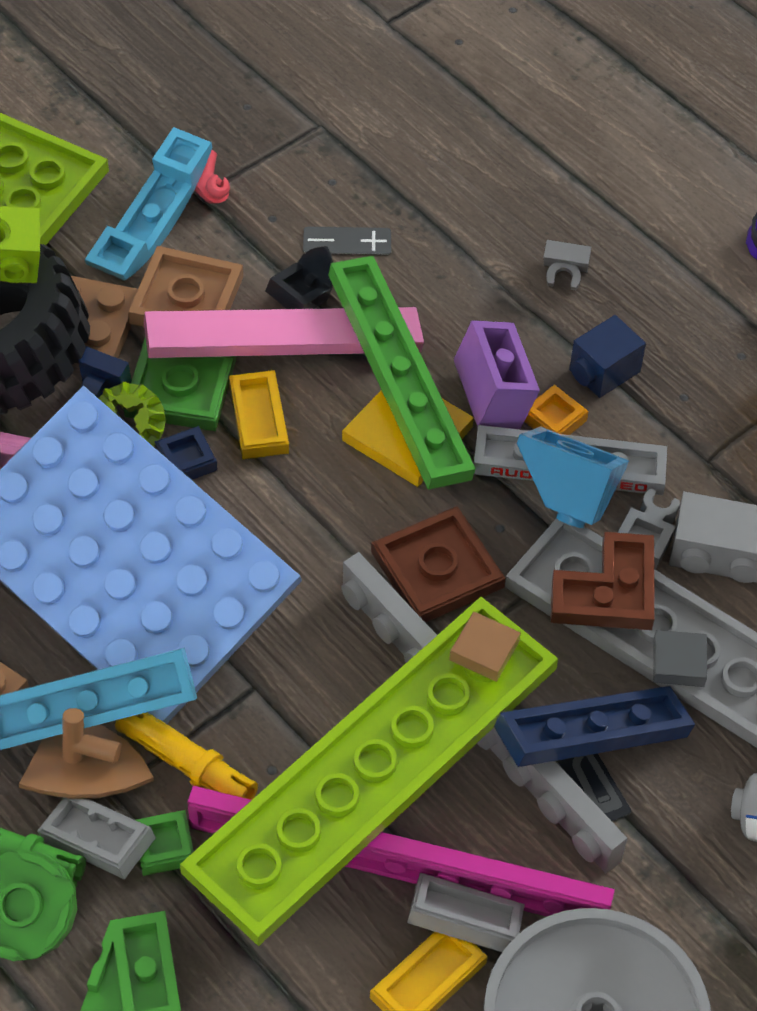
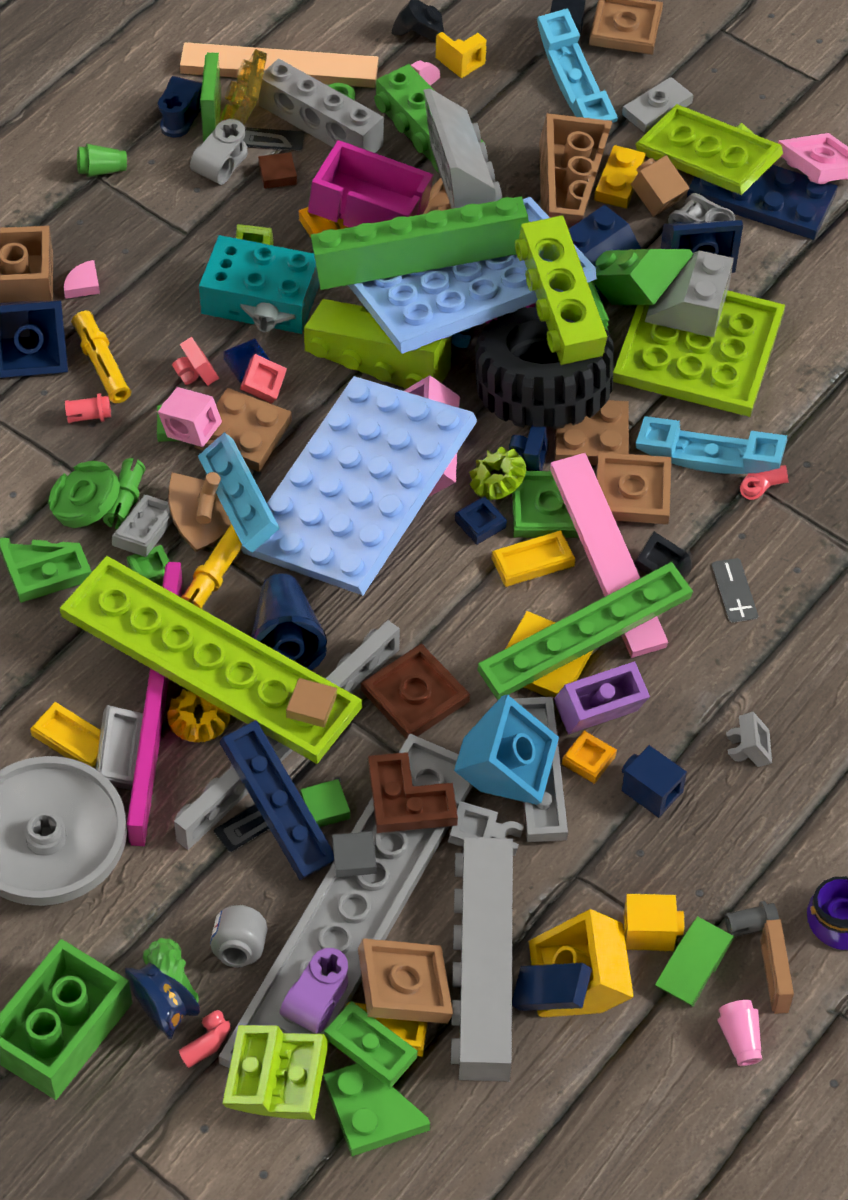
camera: 80 degrees right, 0 degrees up
(310, 679) = (288, 622): none -> dark blue cone
(439, 828) = (185, 725): none -> yellow gear
(579, 682) = (326, 802): none -> bright green tile

